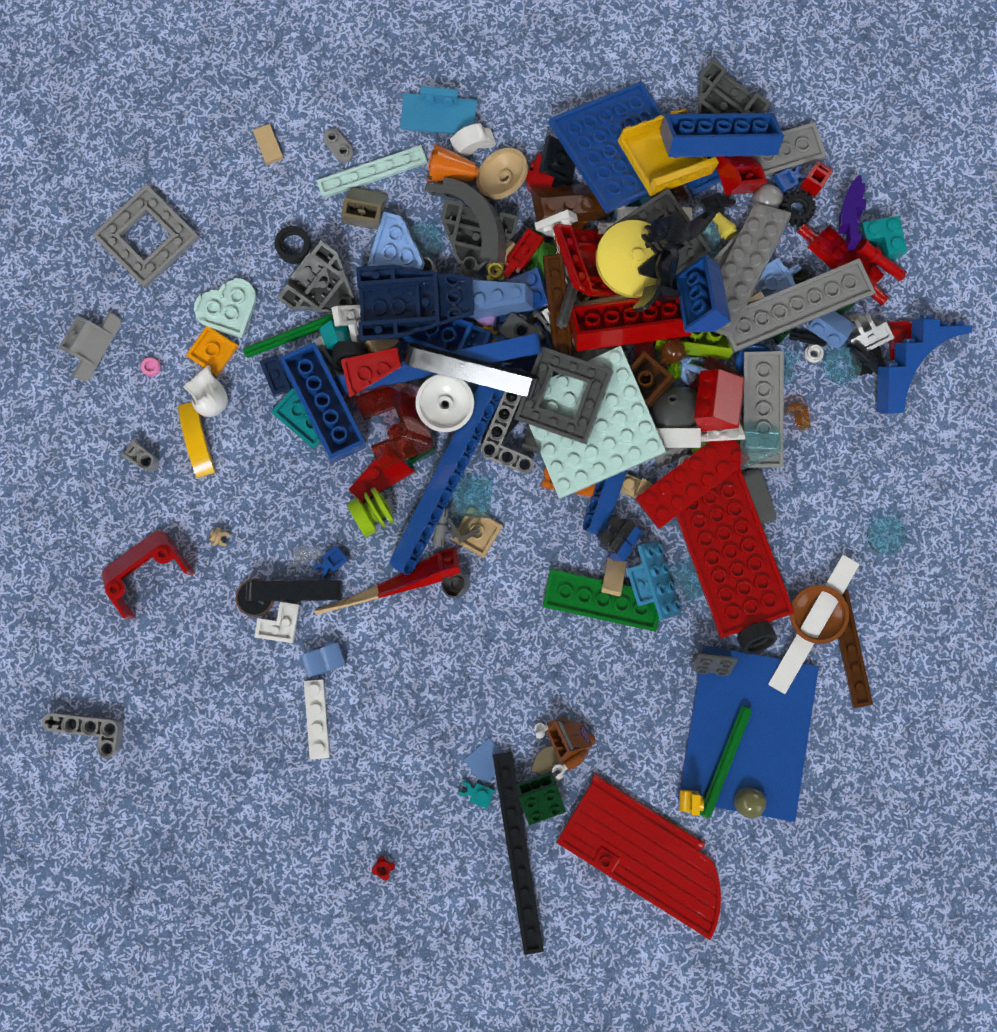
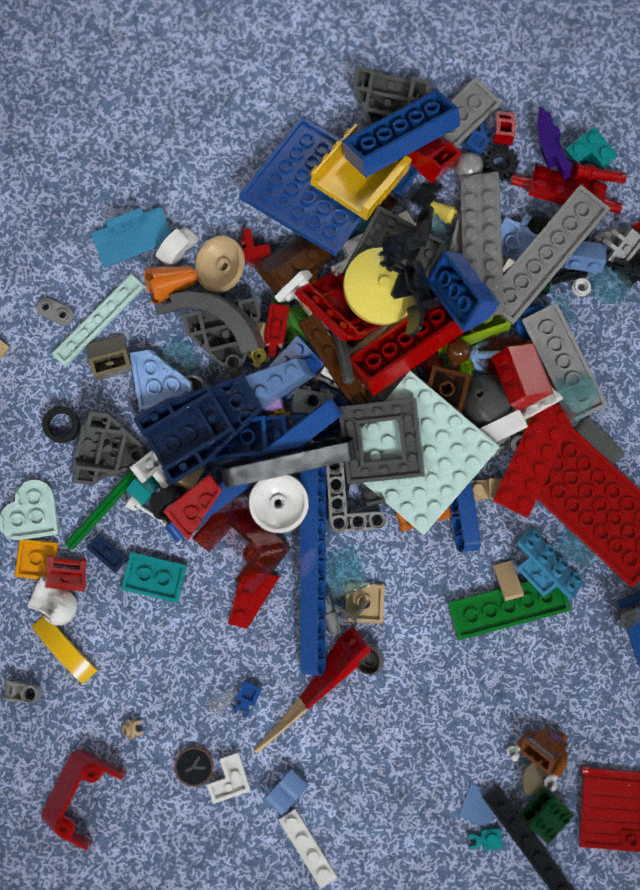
camera: 30 degrees left, 0 degrees up
(227, 376) = (65, 578): none -> red plate
(293, 590) = (227, 743): black beam -> none
(322, 403) = (165, 557): blue brick -> none
(370, 512) = (260, 635): lime wheel -> none
(556, 161) = (263, 228): black plate -> none
(619, 538) = (495, 543): clear smoke hips -> none
(802, 419) = (601, 351): clear orange bracket -> none

